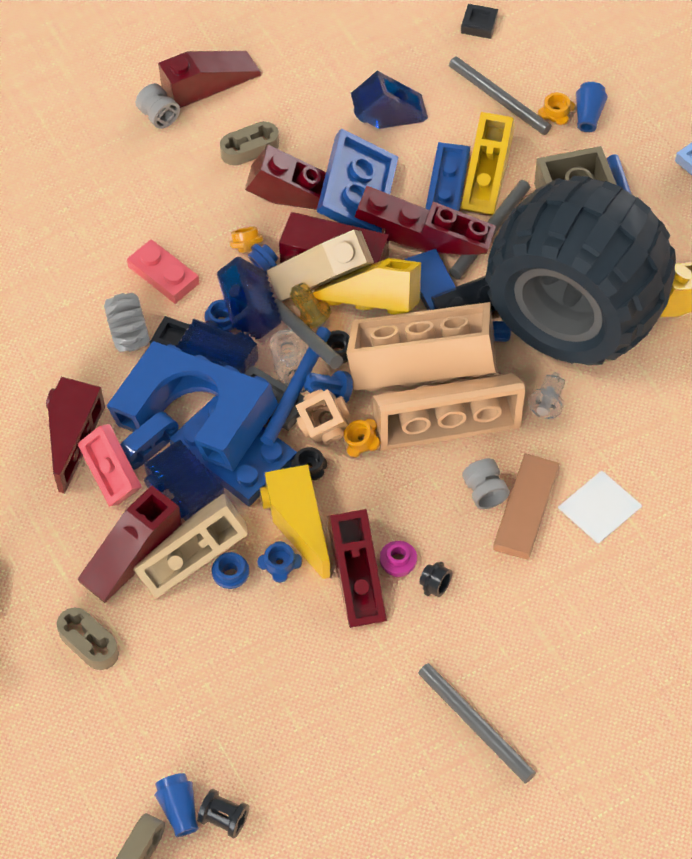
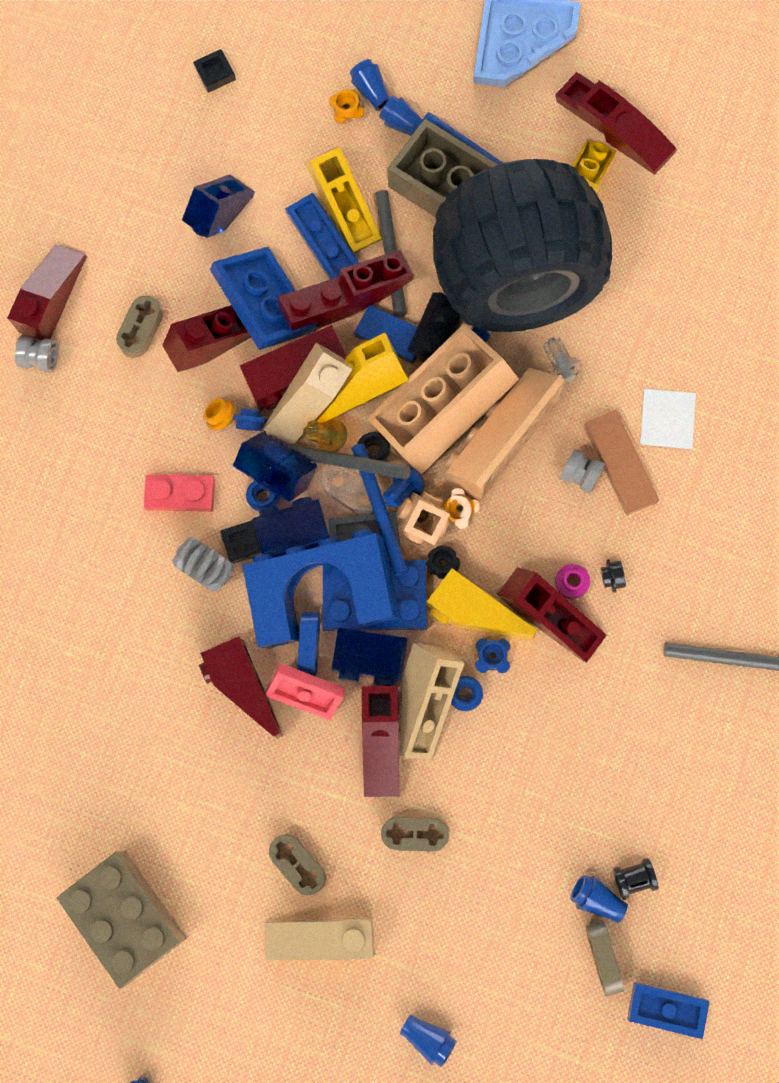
camera: 35 degrees left, 20 degrees up
(500, 95) = (291, 127): dark grey bar -> none
(589, 135) = (400, 116): none -> blue cone

